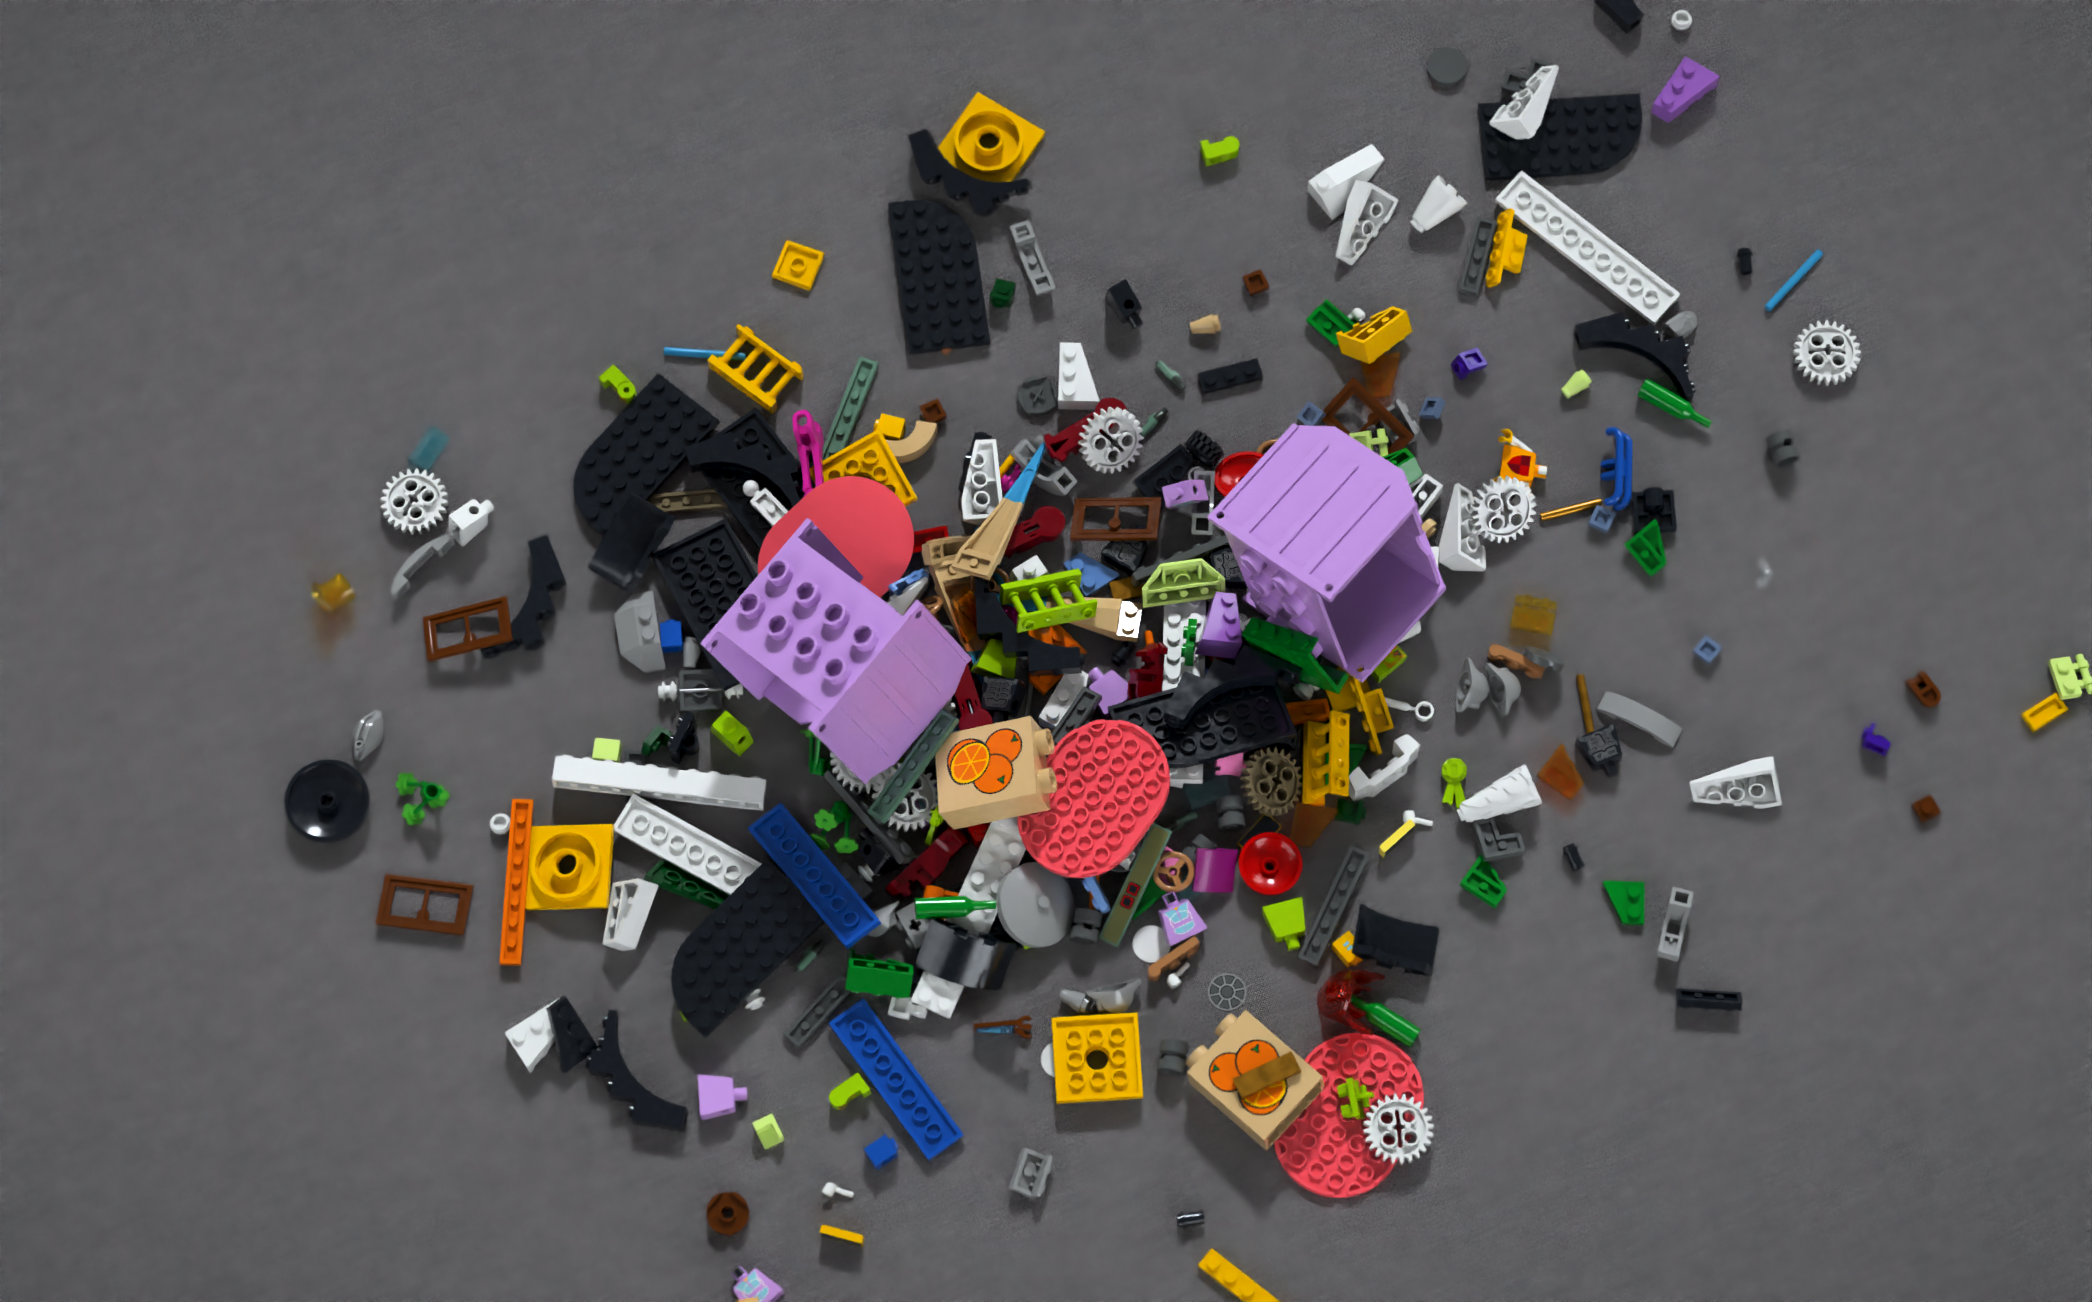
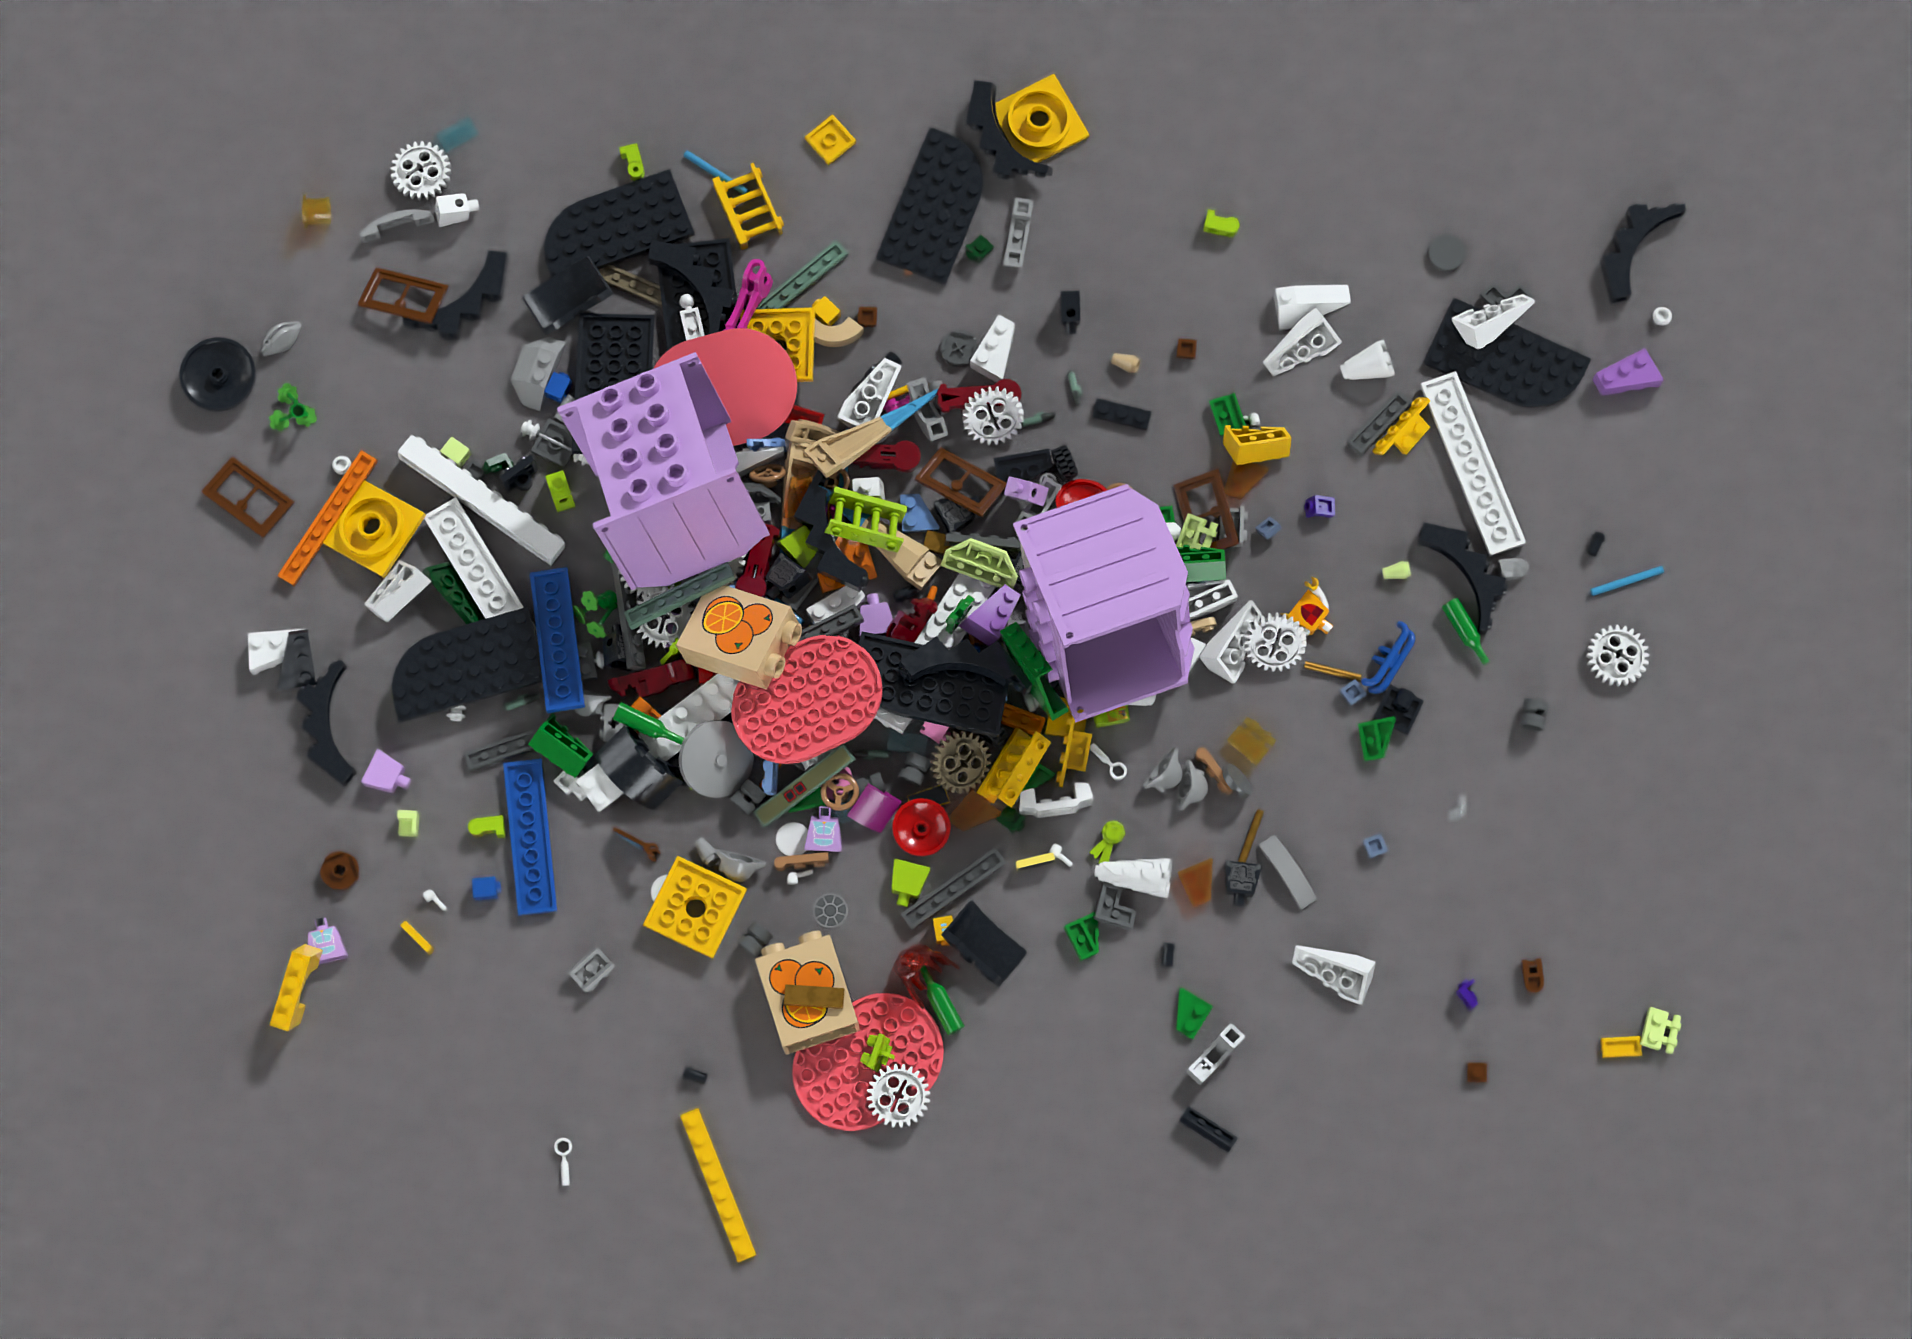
camera: 25 degrees right, 5 degrees up
(1311, 414) = (1167, 481): sand blue plate -> none

